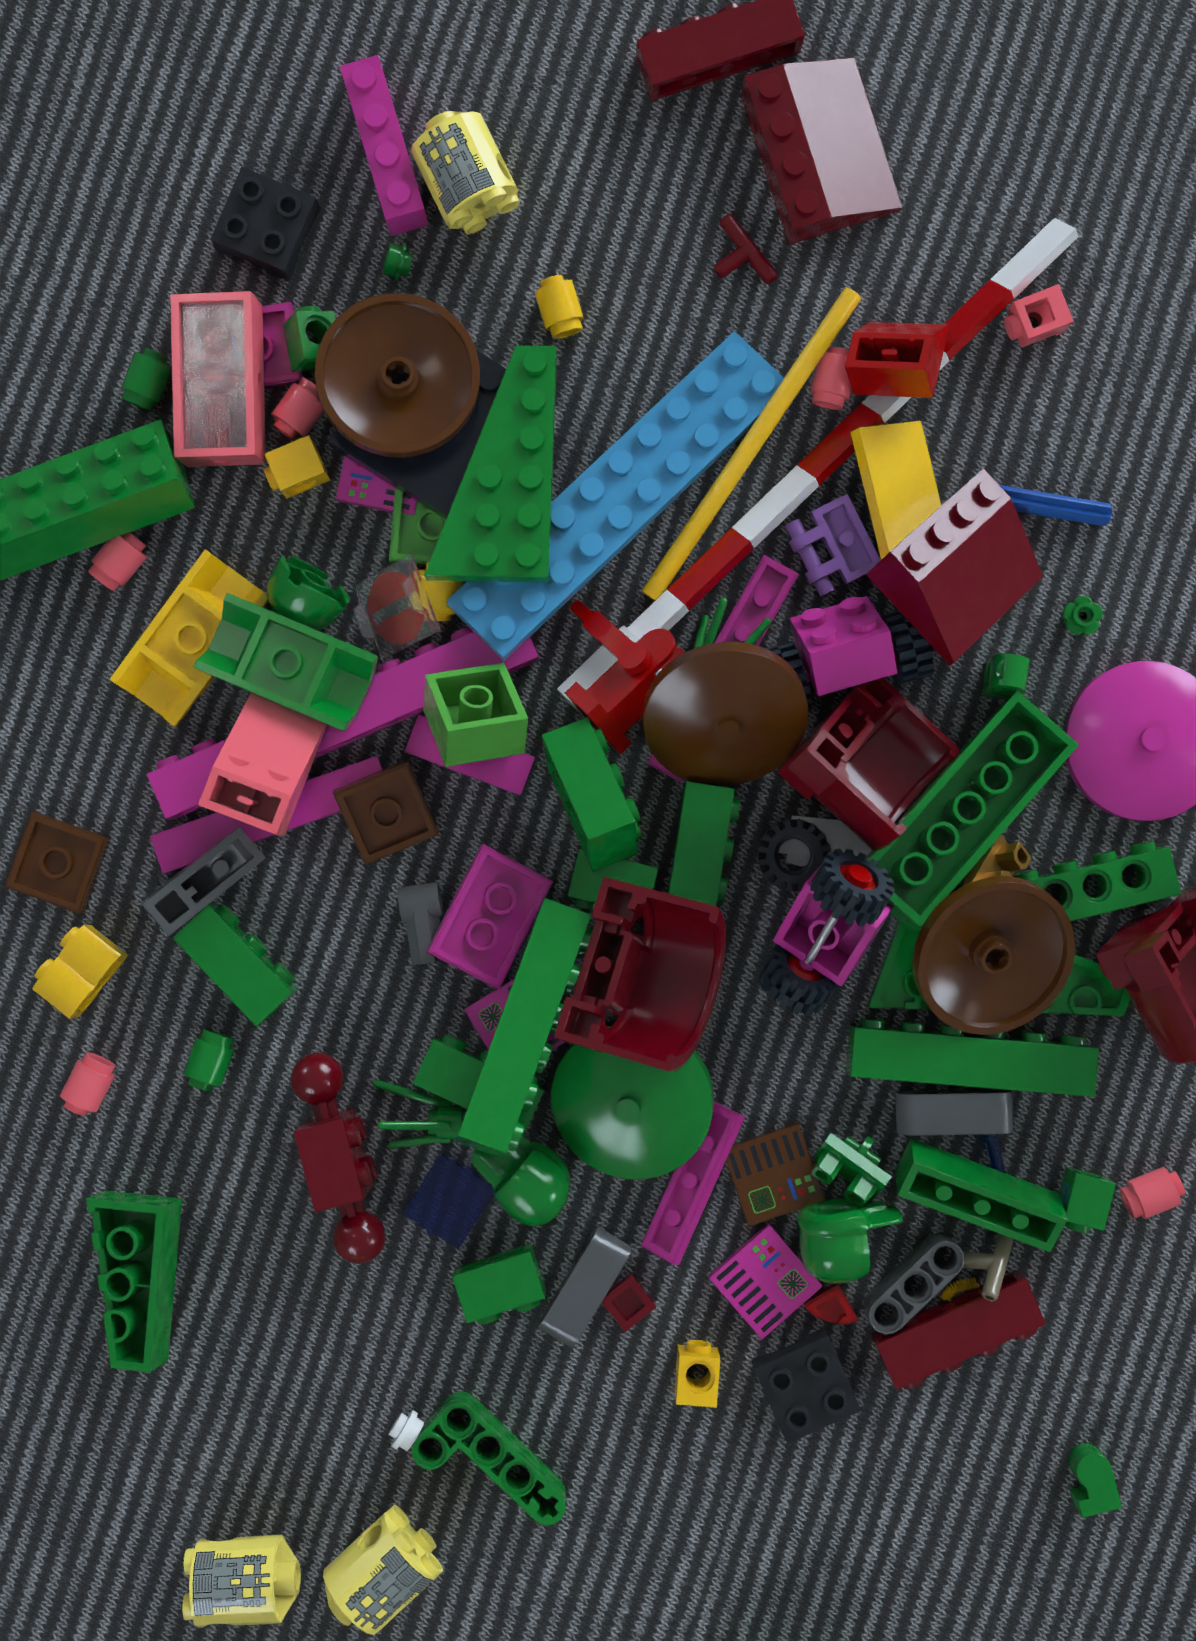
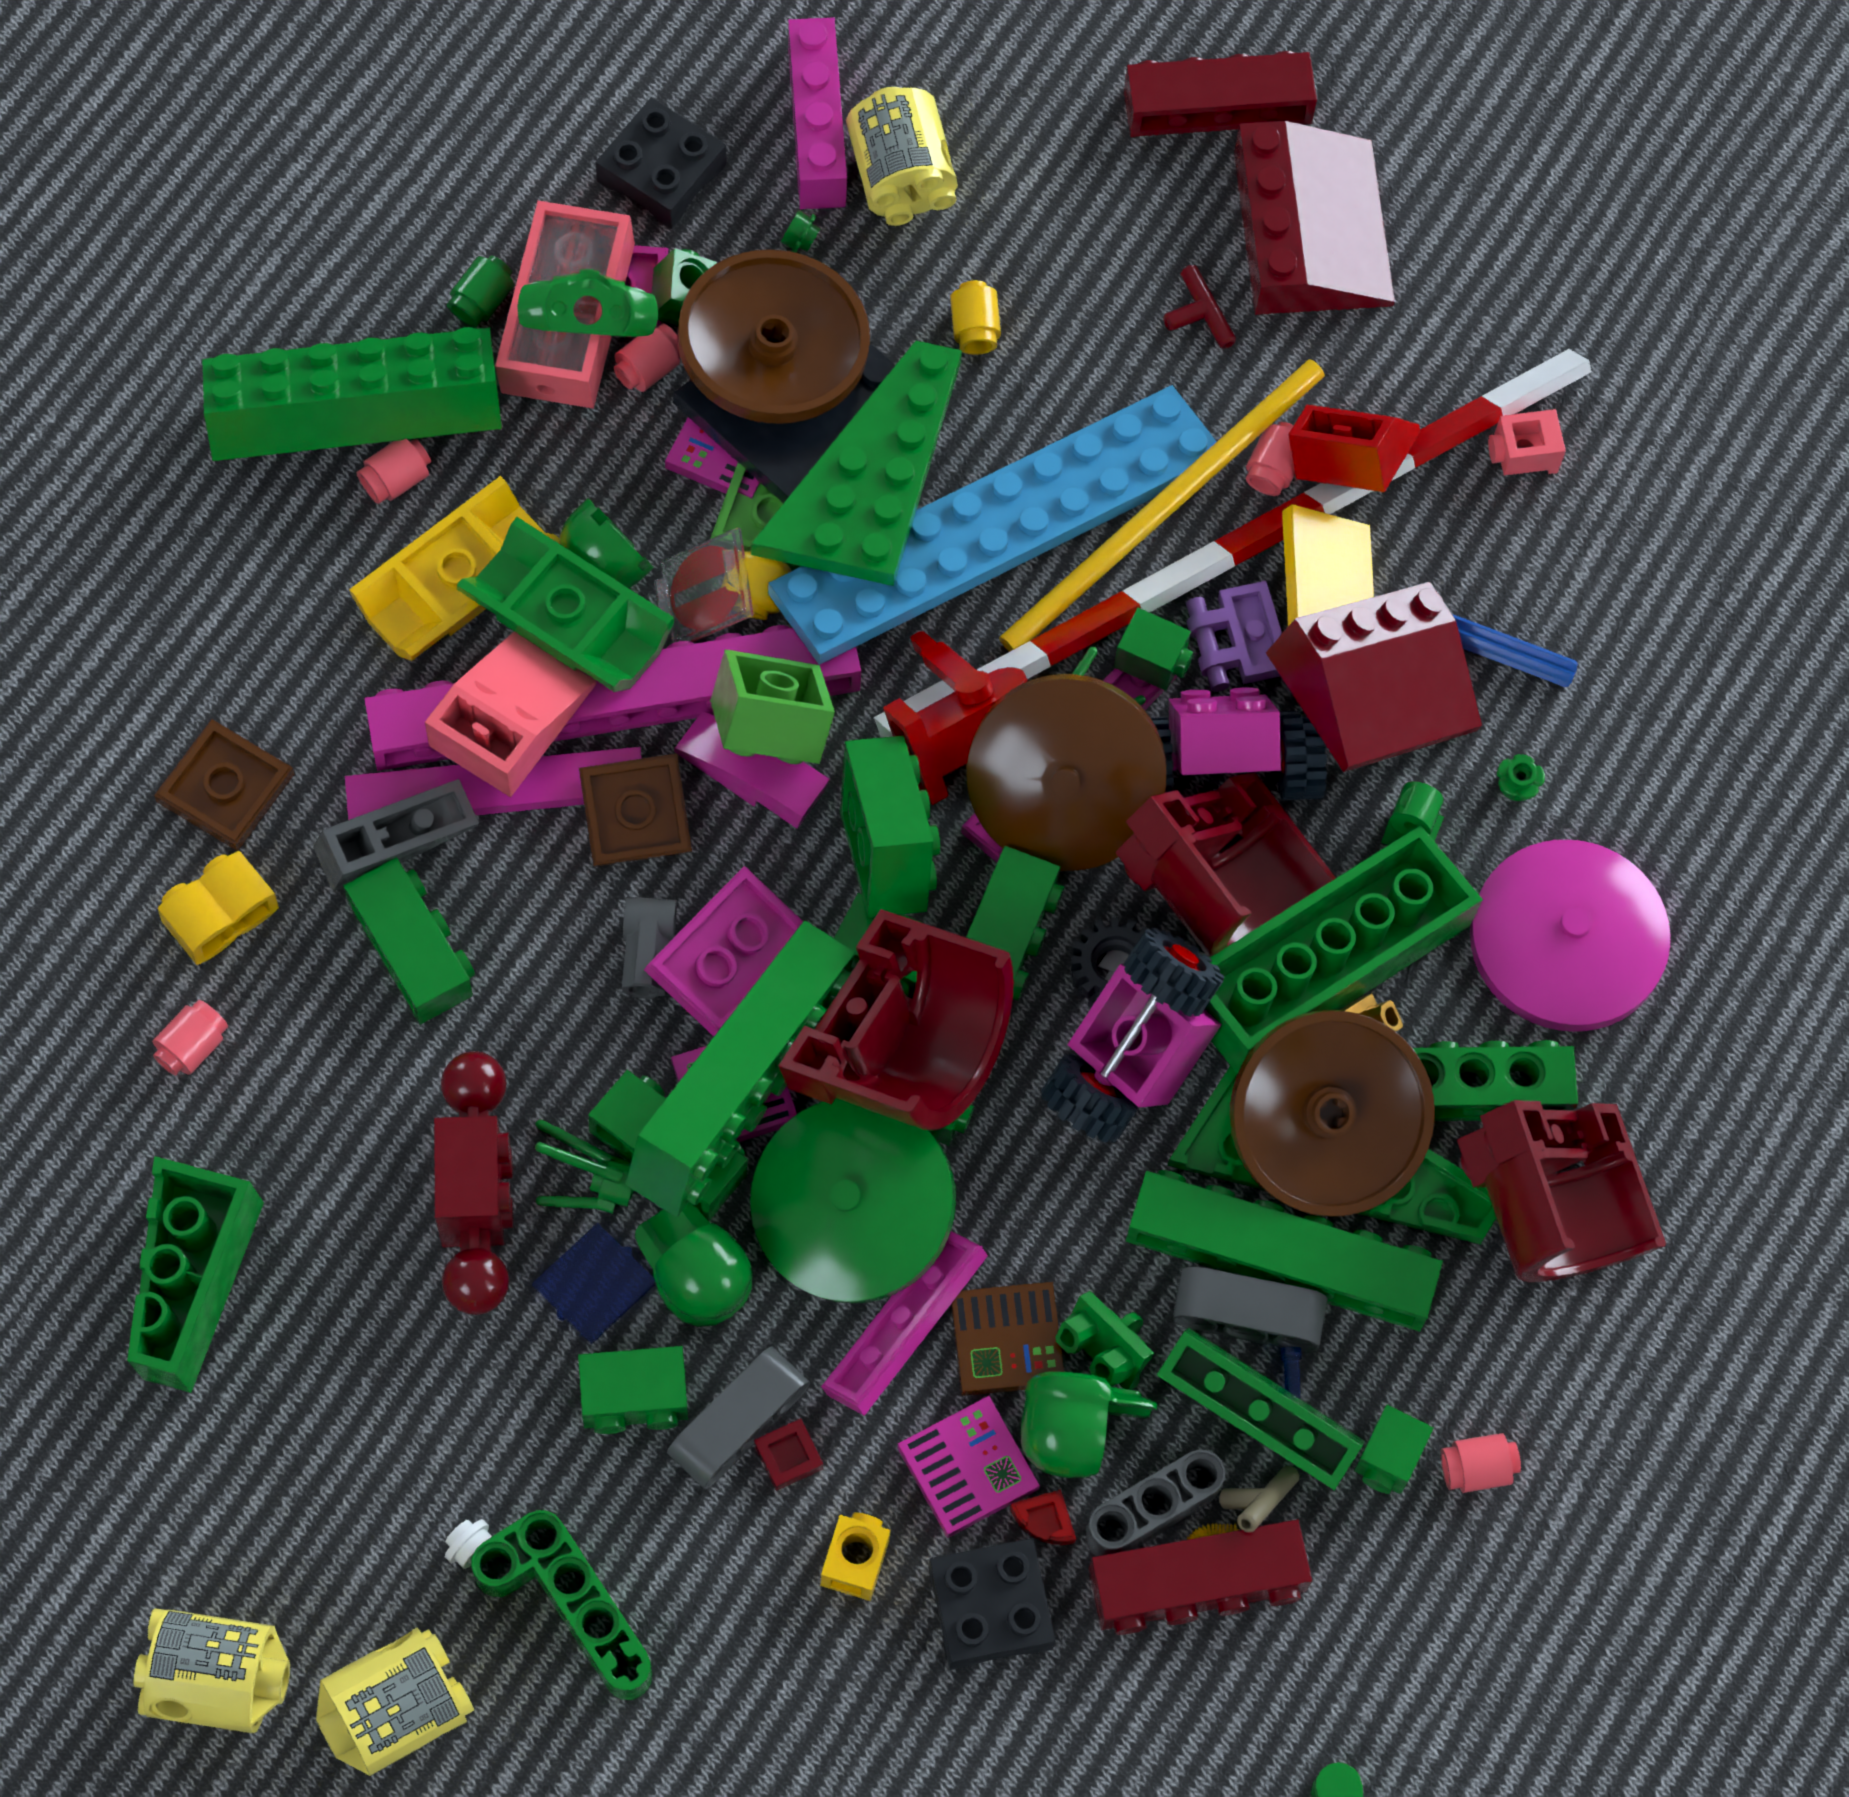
camera: 10 degrees right, 20 degrees down
(204, 393) = (551, 303): none -> green piece
(209, 1060) = (344, 1044): green brick -> none
(295, 467) = (628, 417): yellow brick -> none
(771, 580) = (1154, 650): none -> green brick

